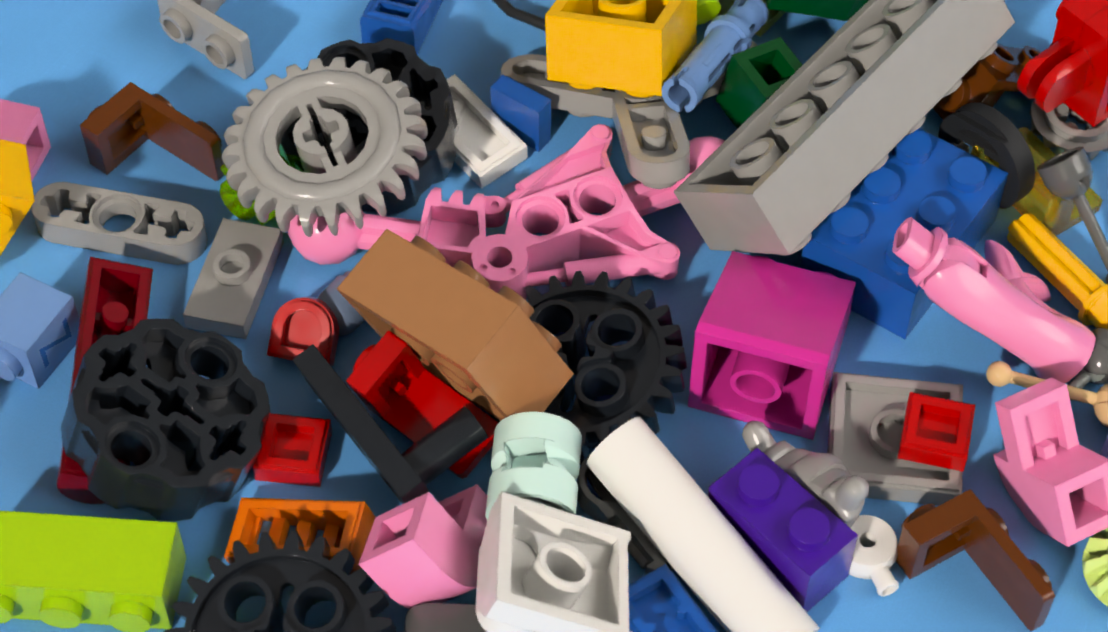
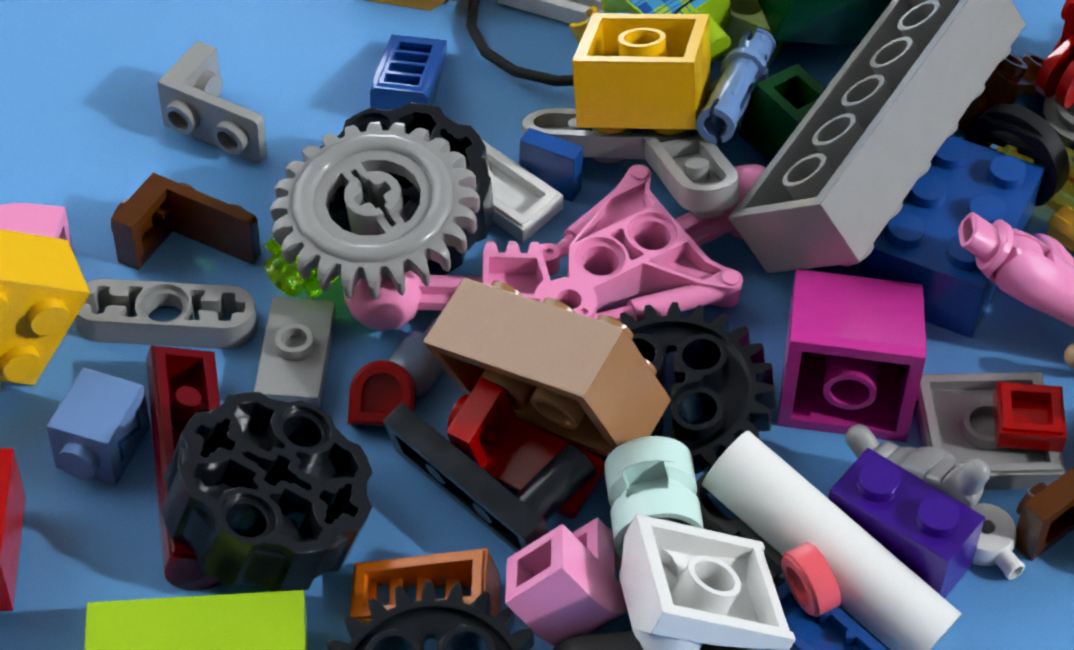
camera: 10 degrees left, 5 degrees down
(293, 450) = (397, 512): red tile -> none
(669, 577) = (810, 579): none -> coral tile

